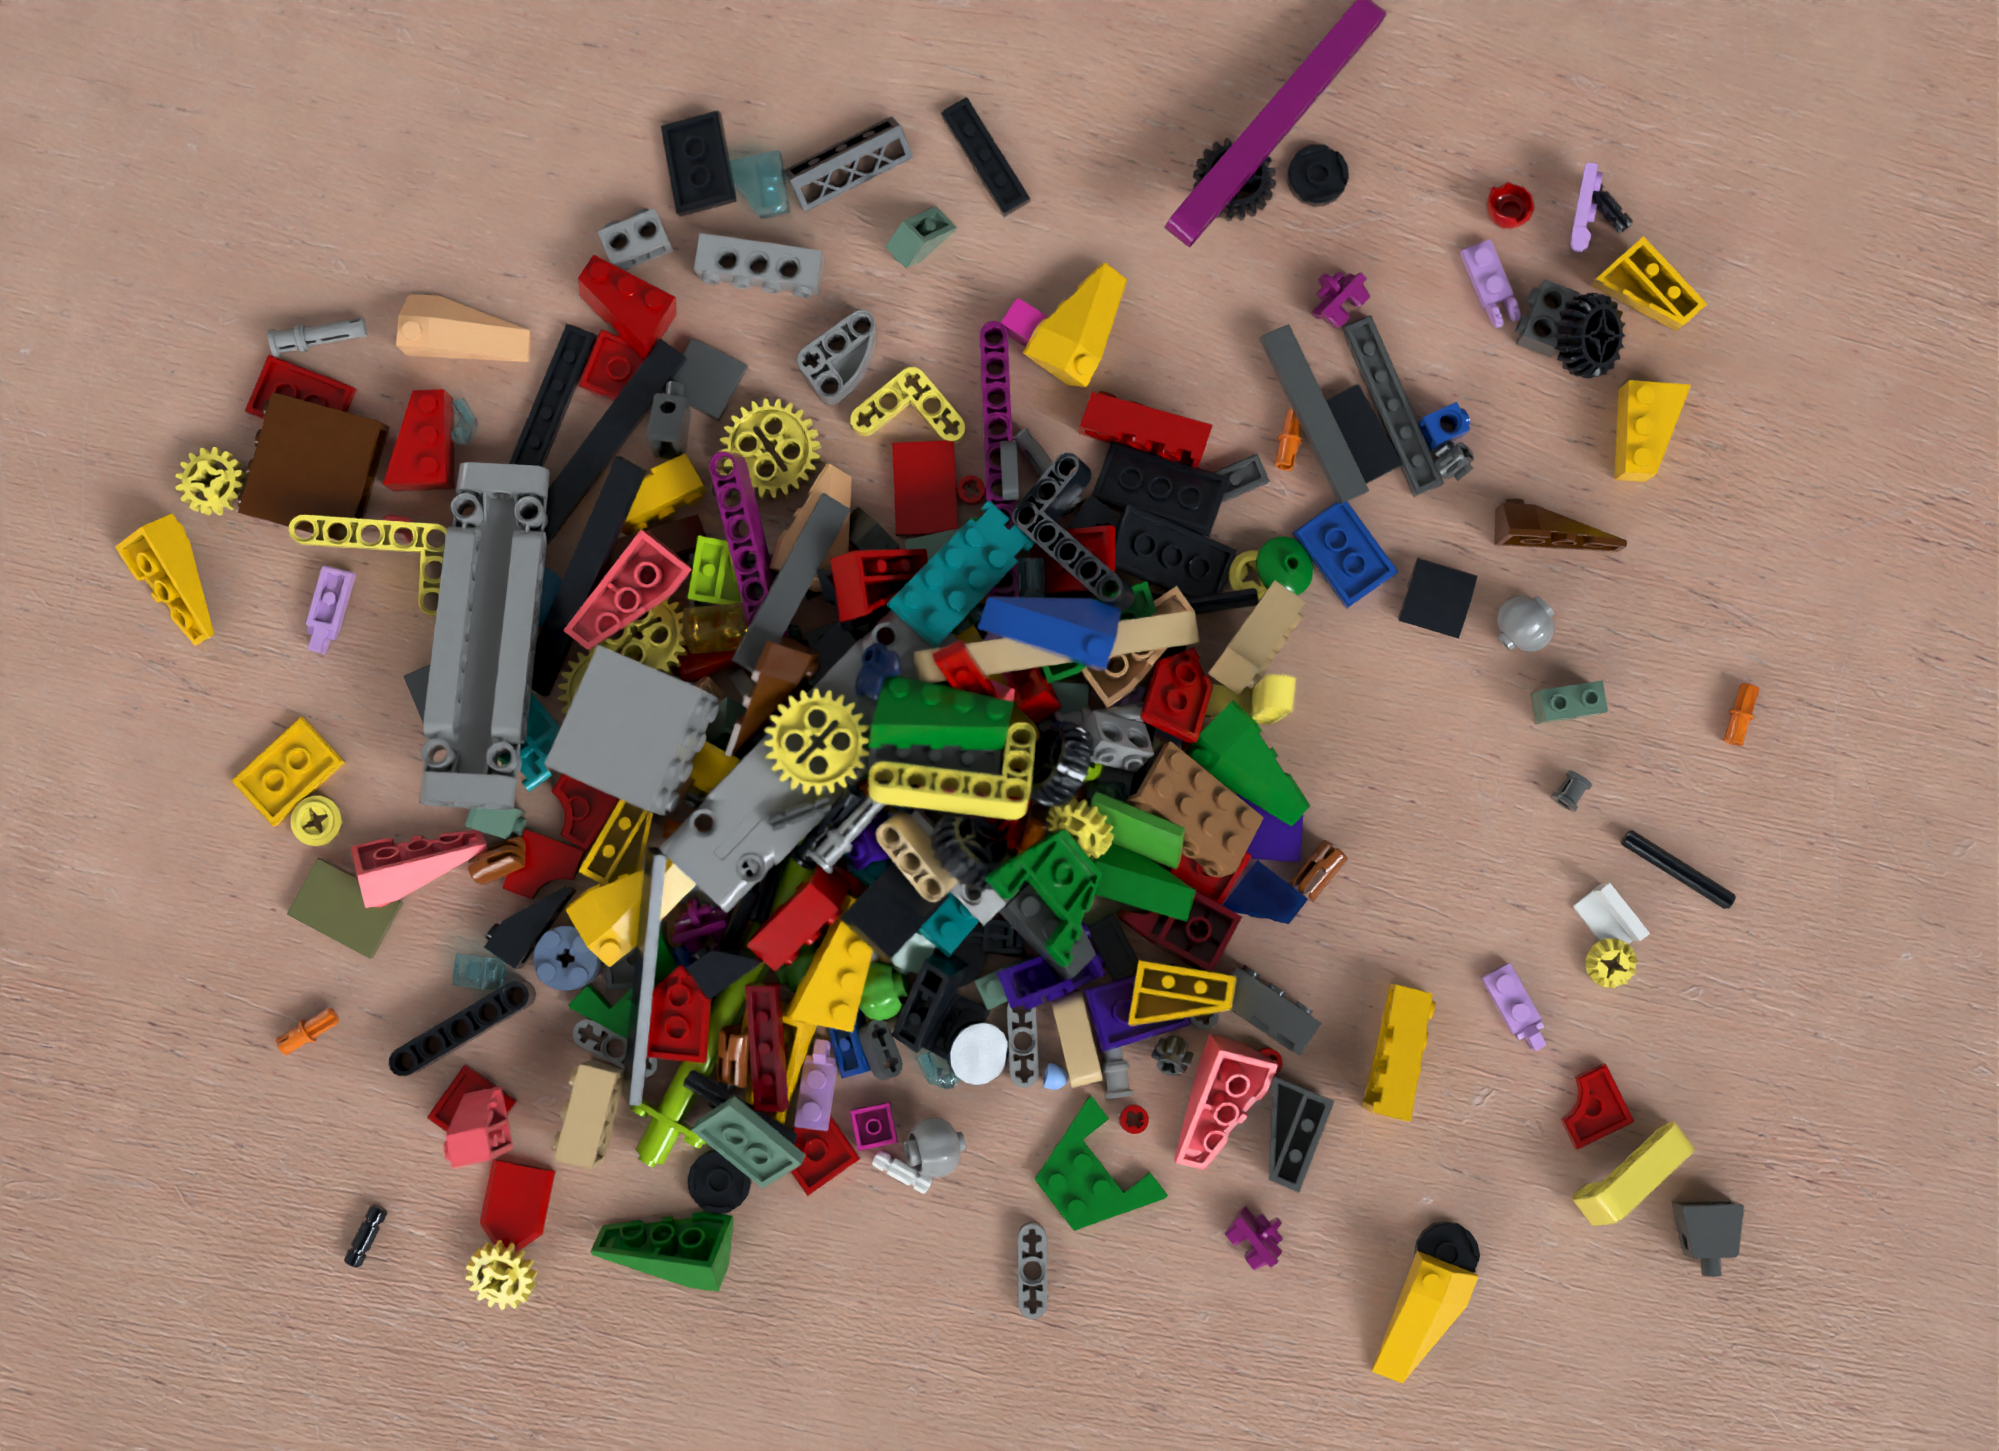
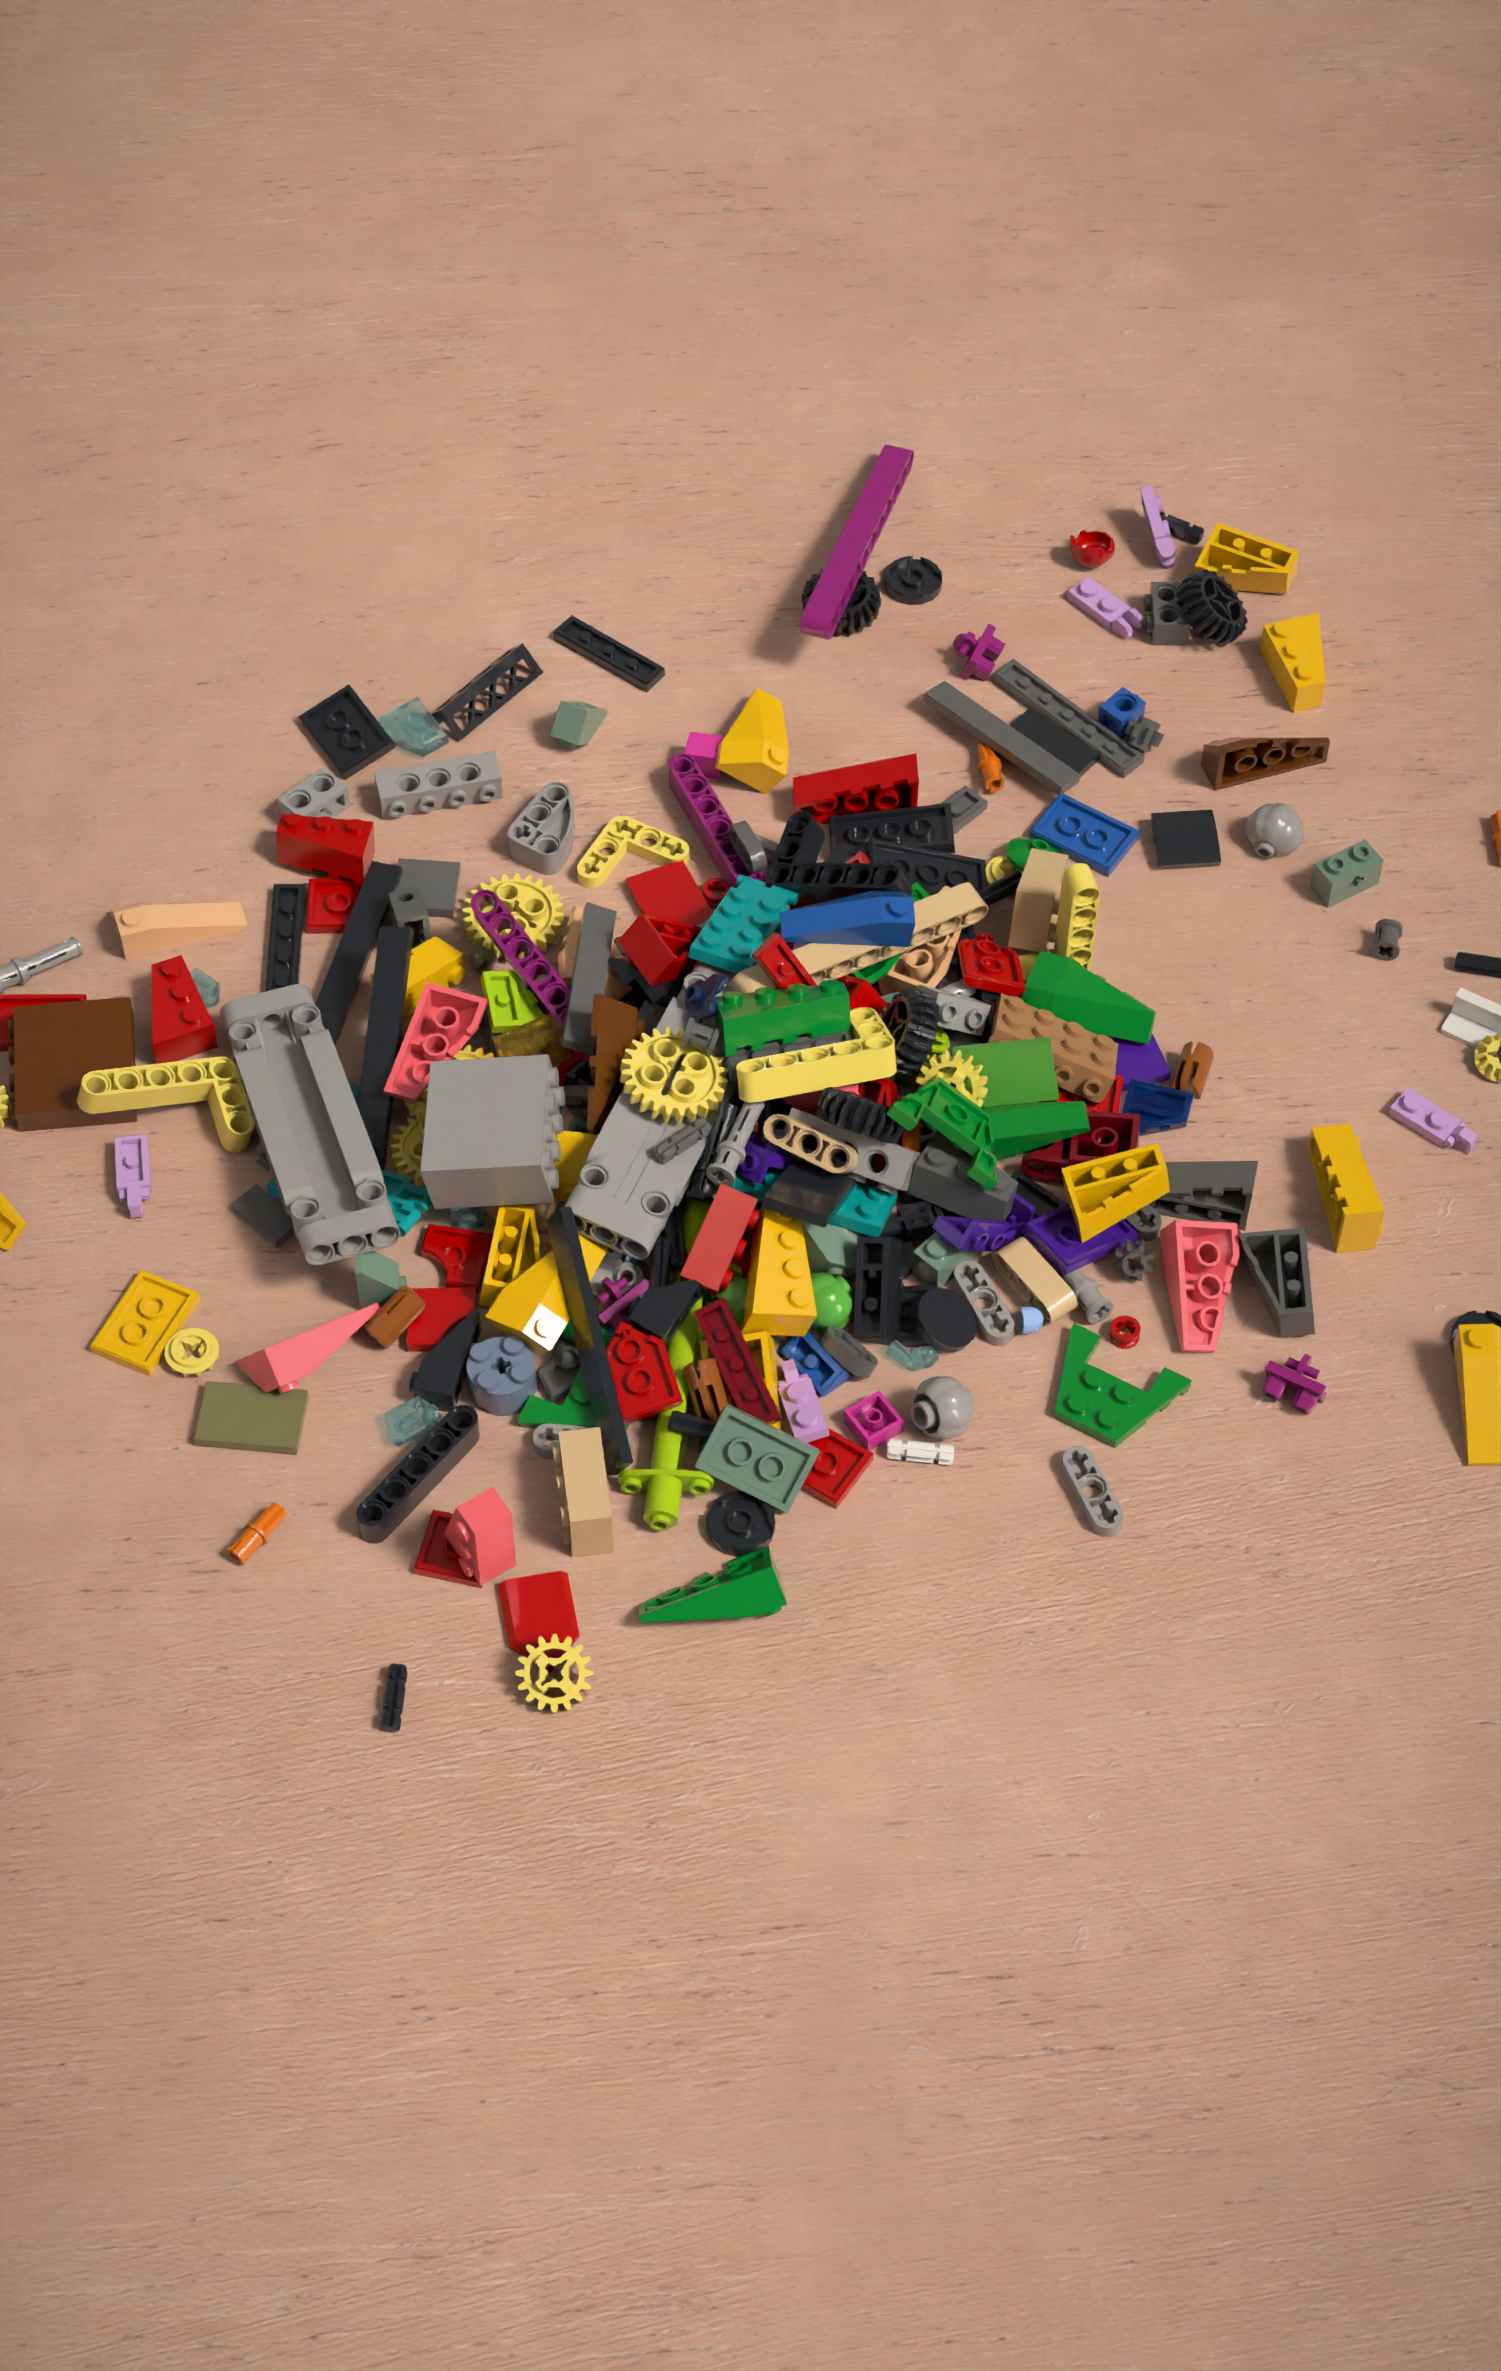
camera: 20 degrees left, 30 degrees down
(852, 719) = (710, 1033): none -> dark grey bush

